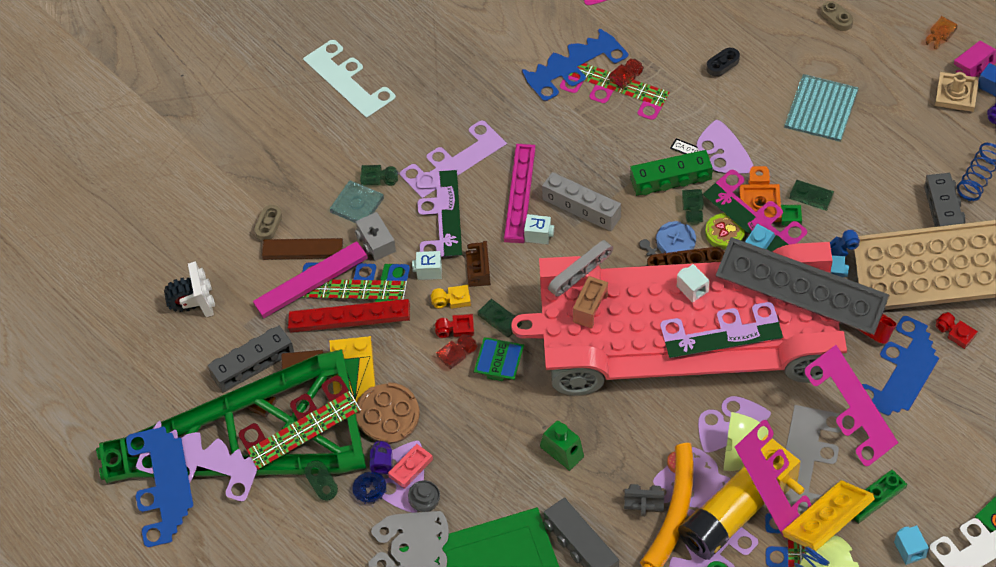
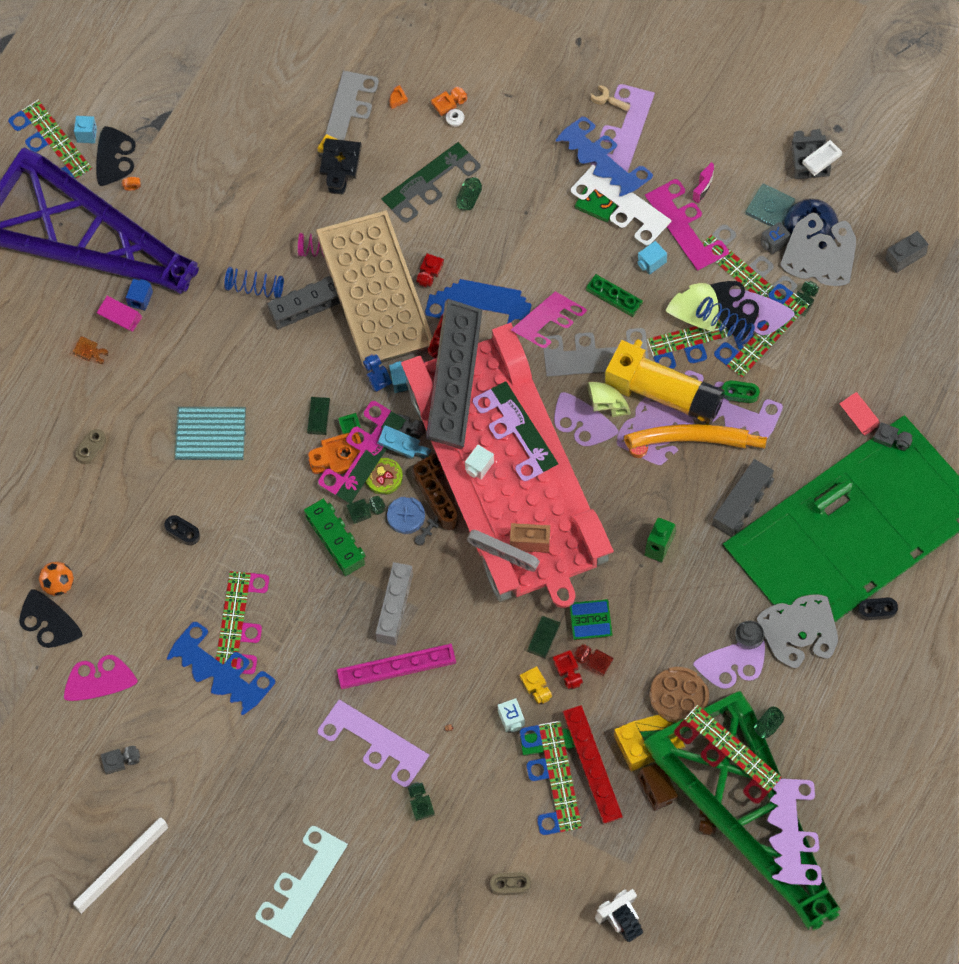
camera: 110 degrees left, 10 degrees up
(172, 483) = (819, 848): blue piece -> none
(250, 358) = (668, 835): dark grey brick -> none
(300, 248) = (528, 841): reddish brown tile -> none
(310, 279) = (563, 817): dark pink tile -> none
(356, 202) = (457, 811): clear light blue tile -> none
(364, 481) = (764, 677): clear blue gear -> none
(375, 236) = (497, 765): light grey brick -> none
(381, 457) = (726, 683): dark purple rock -> none
(410, 466) = (725, 655): coral plate -> none
(448, 211) = (437, 725): piece -> none
(478, 264) = (494, 672): reddish brown hinge -> none
(538, 229) = (437, 631): light aqua brick -> none
(626, 74) = (227, 614): clear red plate -> none
(644, 499) = (683, 453): dark grey hips -> none
(683, 147) = (295, 535): white sticker -> none
(734, 152) = (276, 505): lavender piece -> none
(765, 475) = (654, 356): dark pink piece -> none
(828, 515) = (651, 319): yellow tile -> none
(957, 91) = (161, 322): tan plate -> none

